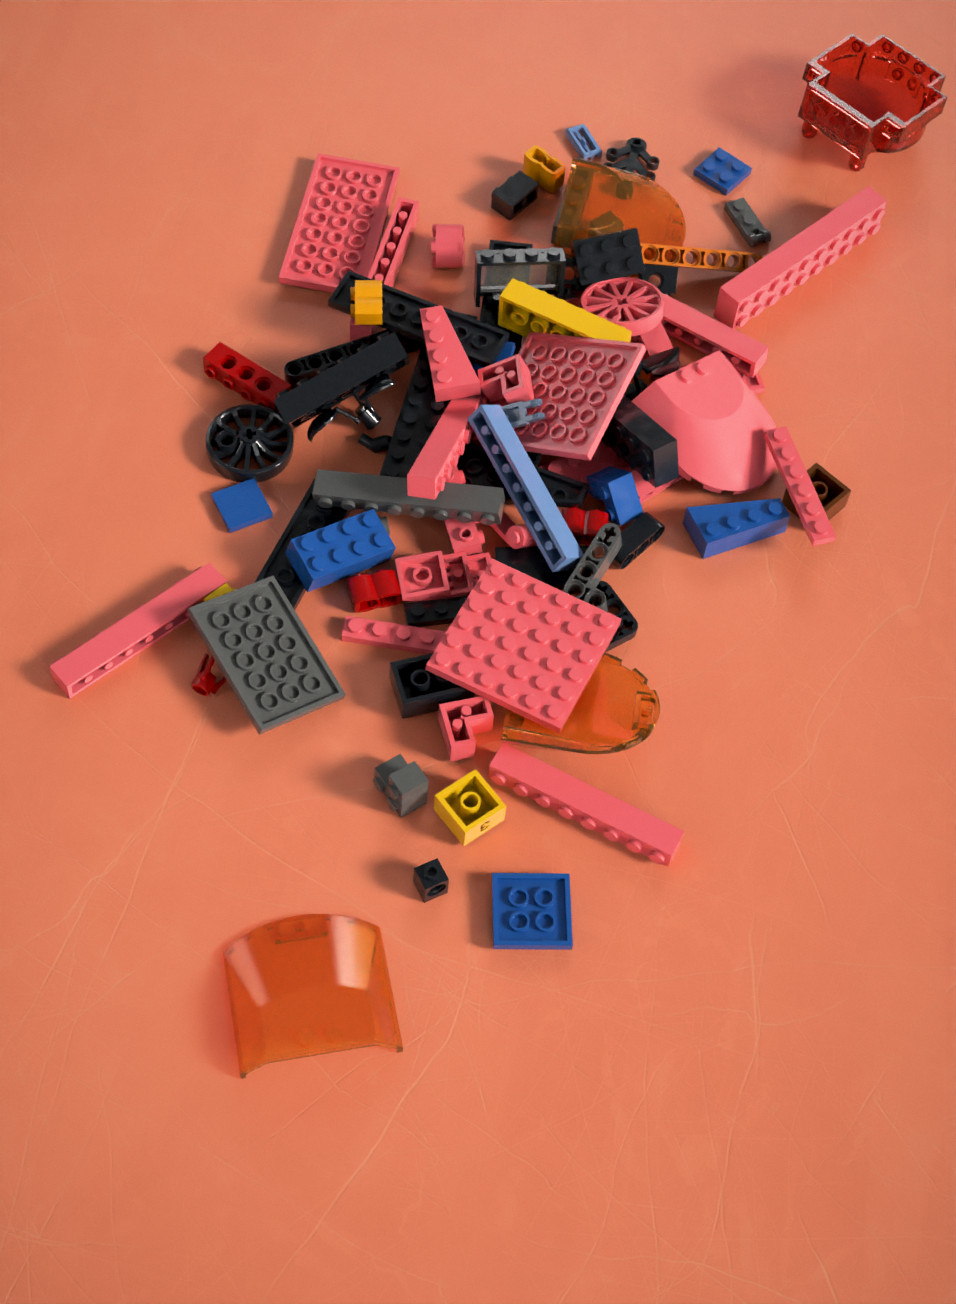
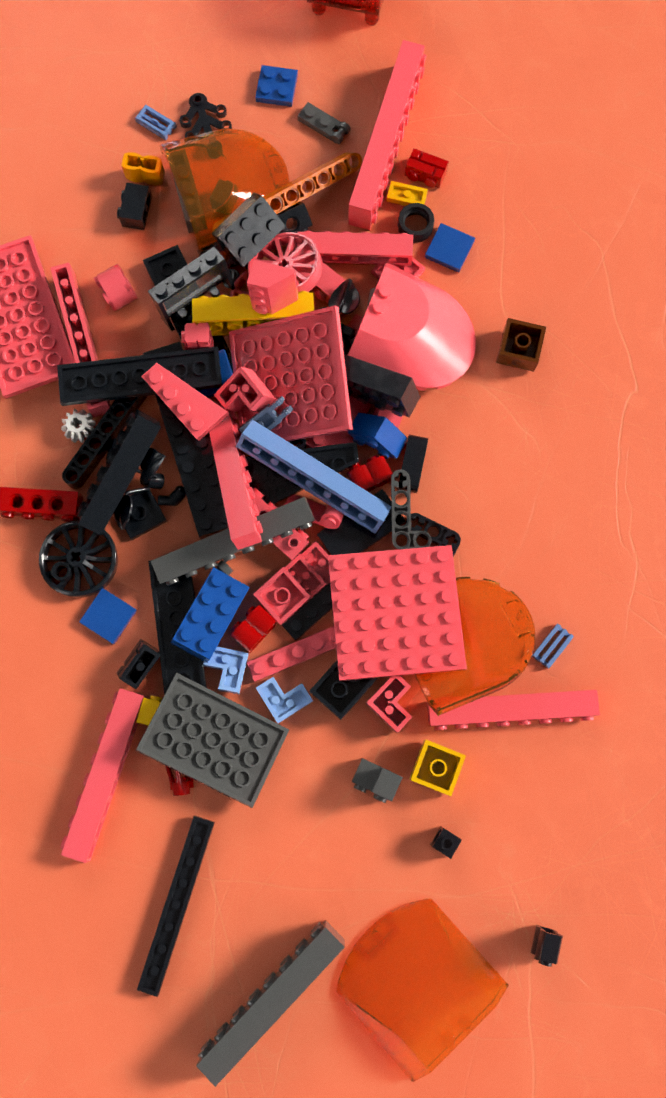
camera: 25 degrees left, 20 degrees up
(122, 780) = (175, 906): none -> black plate
(154, 908) = (270, 1002): none -> dark grey brick
(241, 554) = (138, 664): none -> black brick
(328, 610) = (233, 666): none -> light blue plate
(329, 335) = (72, 422): none -> white gear
(336, 441) = (144, 515): none -> black tile
(355, 671) = (282, 704): none -> light blue plate
(368, 302) = (93, 388): light orange brick -> none
(468, 1027) = (546, 945): none -> black brick
(497, 314) = (197, 336): none -> coral brick
(531, 911) = (528, 817): blue plate -> none
(592, 296) = (271, 287): none -> coral slope
(682, 763) = (563, 632): none -> medium blue tile
(733, 525) = (473, 408): blue wedge -> none
(785, 333) = (416, 209): none -> black tyre
(789, 319) = (406, 194): none -> yellow plate
(799, 486) = (509, 347): coral plate -> none
(802, 384) = (450, 247): none -> blue tile
(823, 307) = (426, 168): none -> red brick

